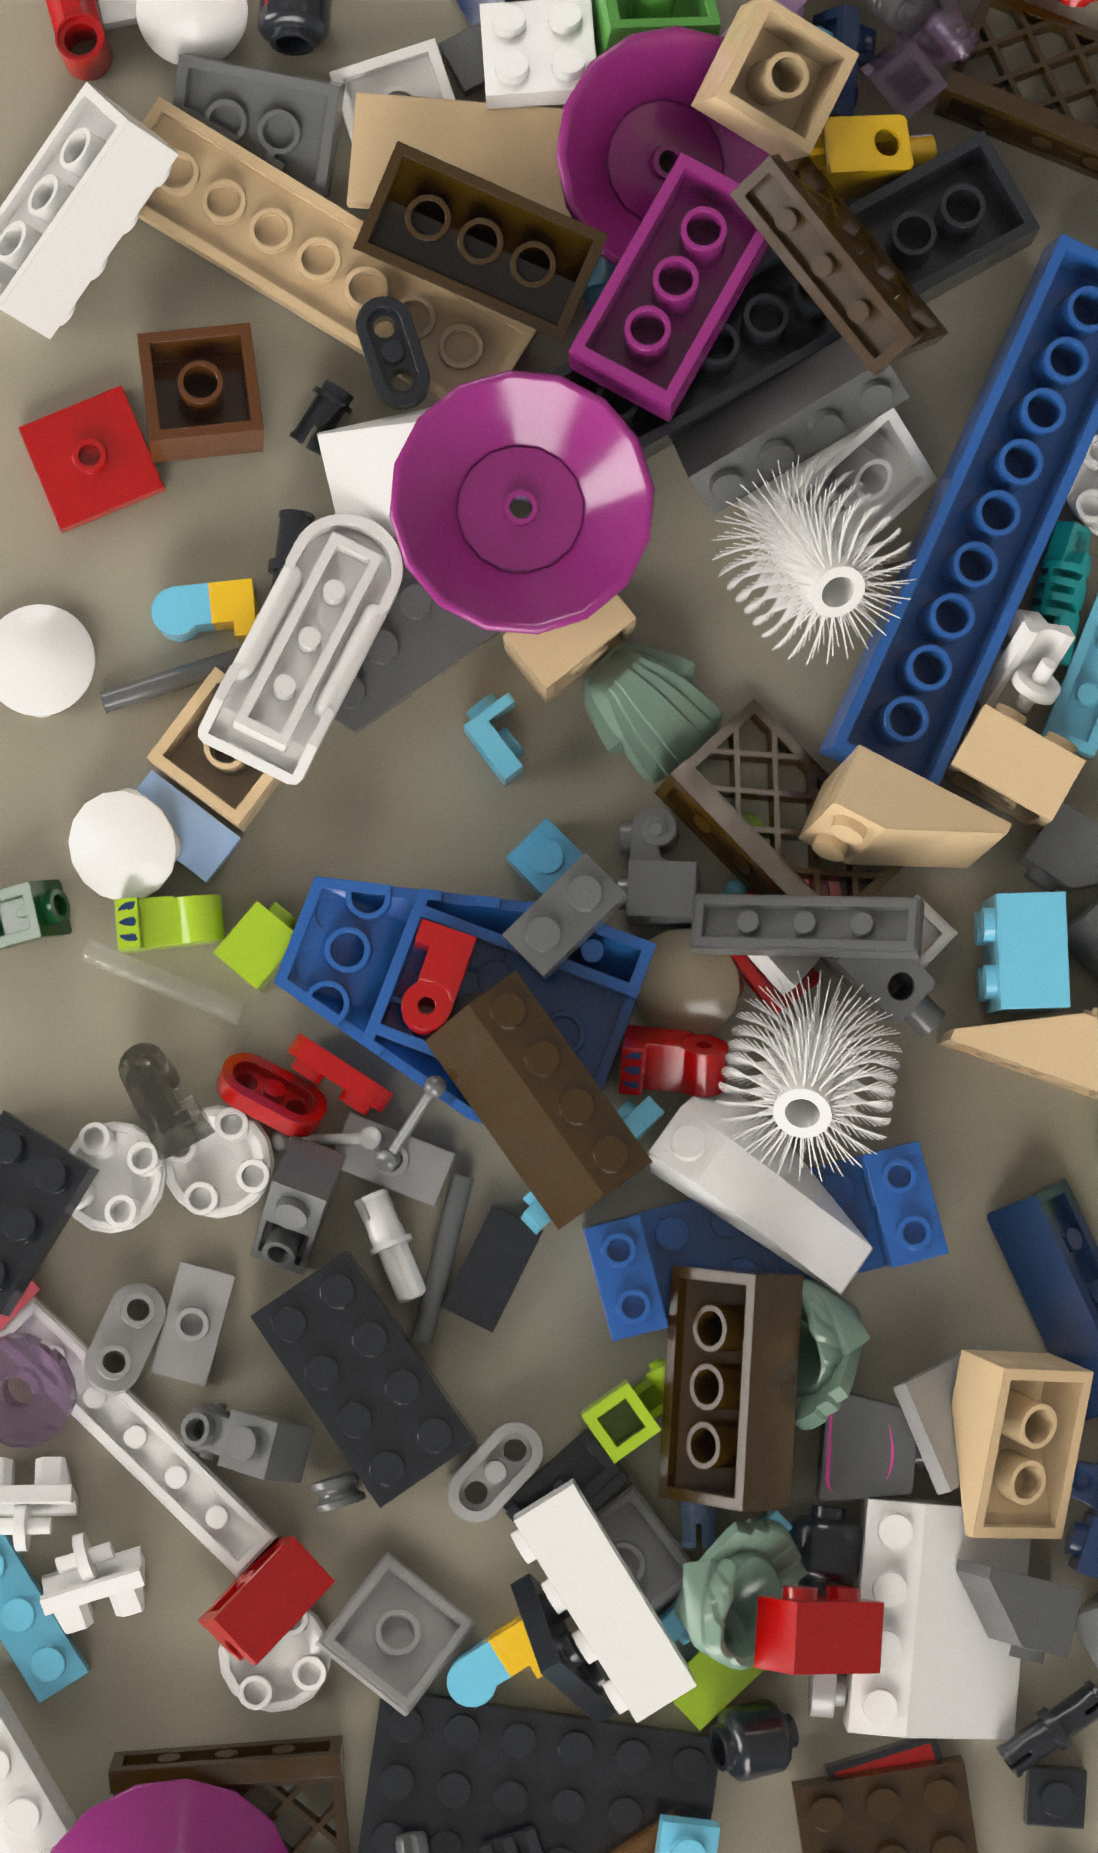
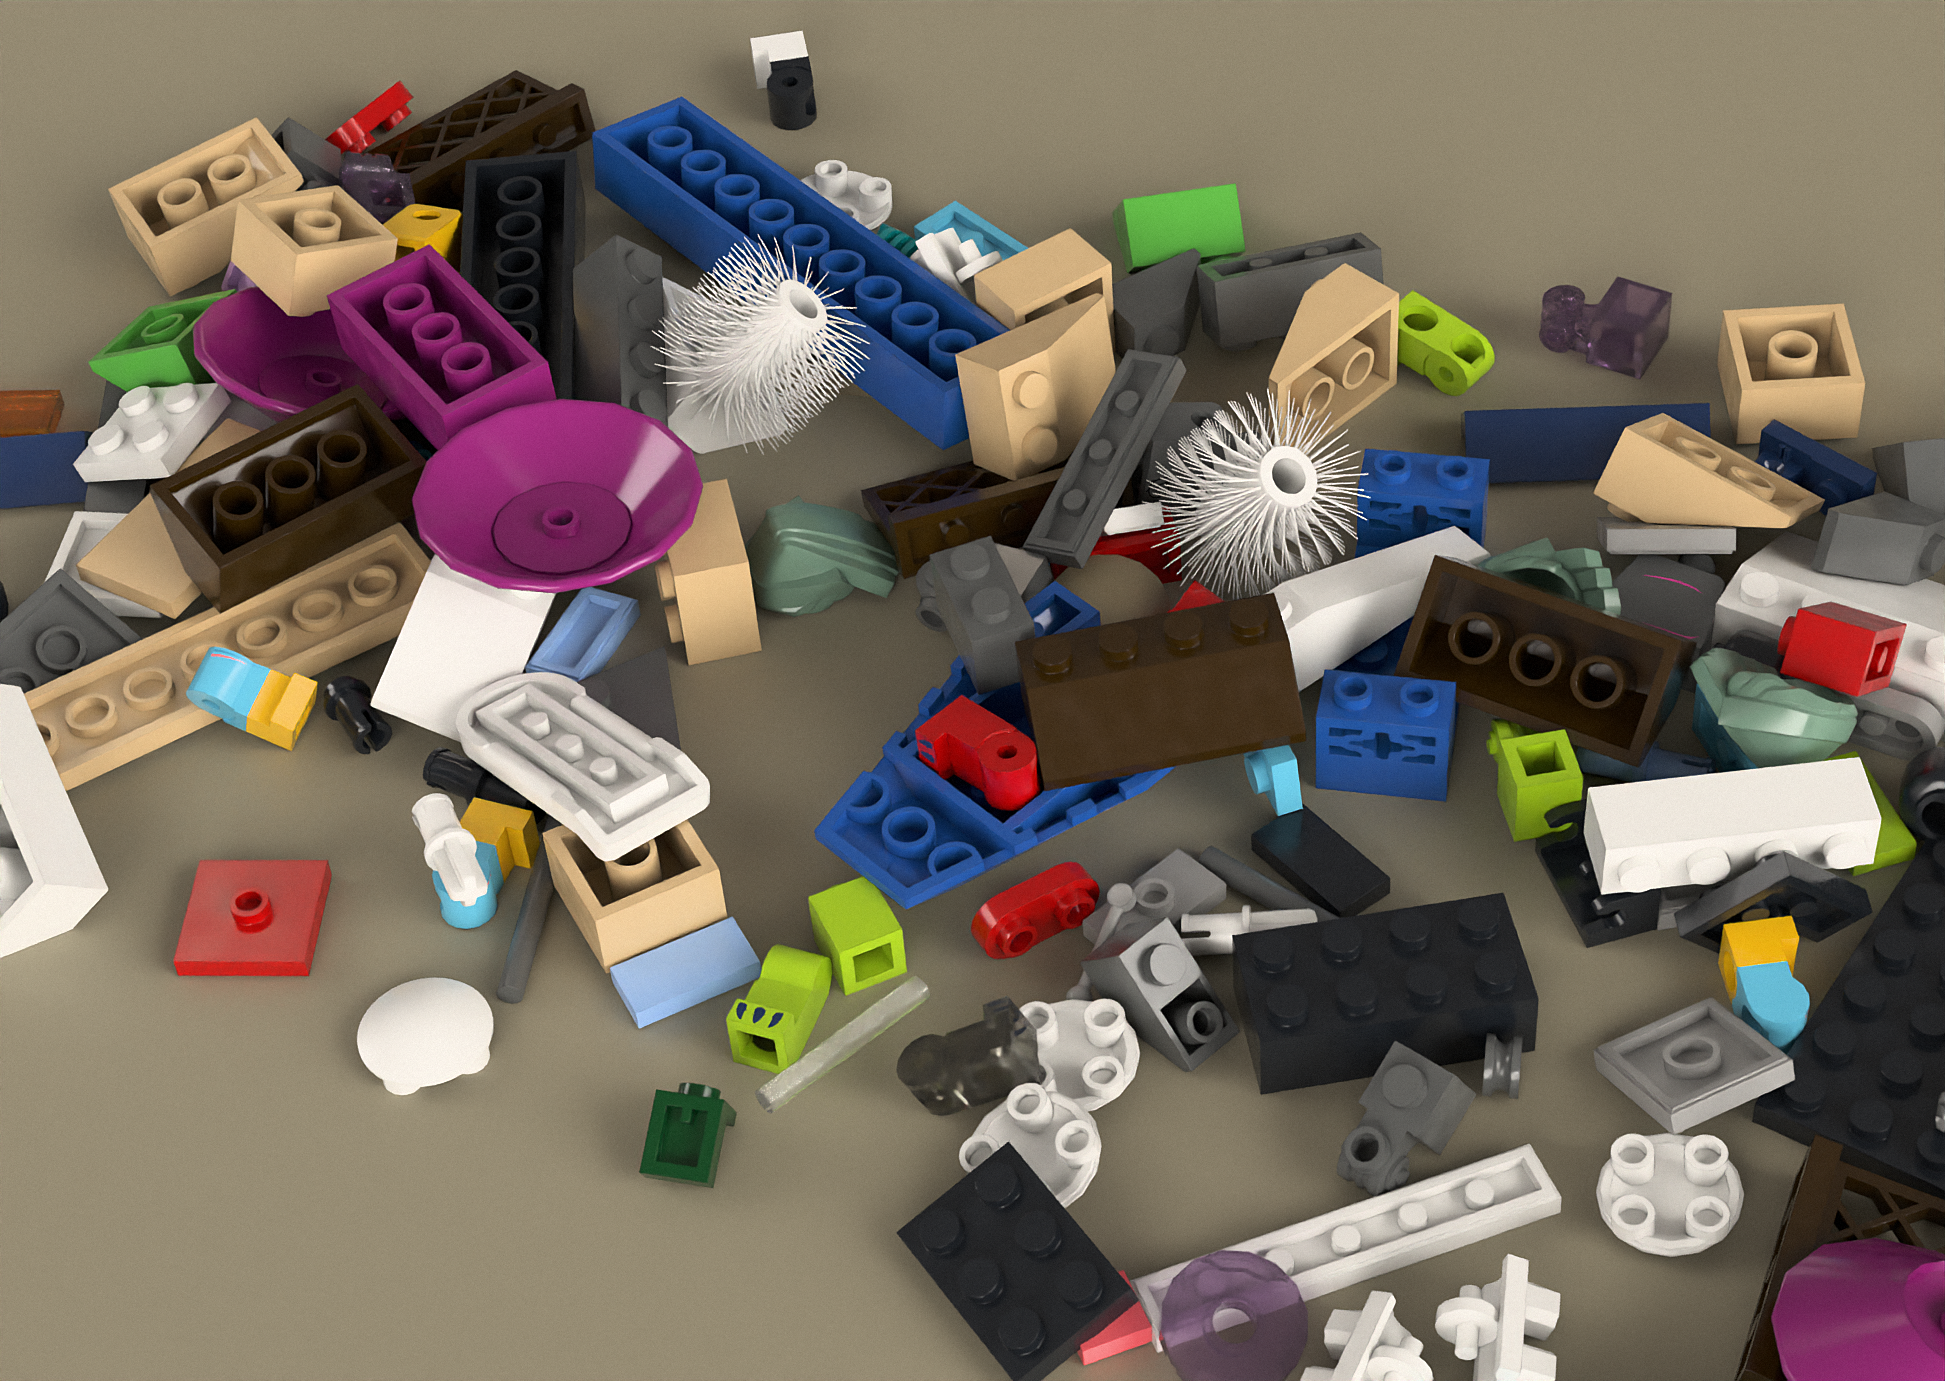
camera: 60 degrees left, 40 degrees down
(123, 845) = (671, 1013): white dish -> none
(124, 1337) = (1225, 1205): light grey plate -> none
(177, 599) = (449, 848): none -> white axle
(193, 1323) = (1242, 1145): light grey plate -> none
(200, 392) = (259, 781): reddish brown brick -> none
(266, 1600) = (1597, 1156): red hinge -> none
(271, 1094) = (1044, 967): red plate -> none
(284, 332) = (253, 696): none -> leg
(389, 1156) = (1151, 885): dark grey hinge -> none
(394, 354) = (340, 615): black plate -> none
(496, 1471) = (1555, 935): light grey plate -> none
(497, 748) = (773, 681): medium azure bracket -> none
(543, 856) = (911, 664): dark azure brick -> none
(837, 261) = (508, 217): dark brown fence -> none
(1023, 953) = (1225, 341): medium azure brick -> none

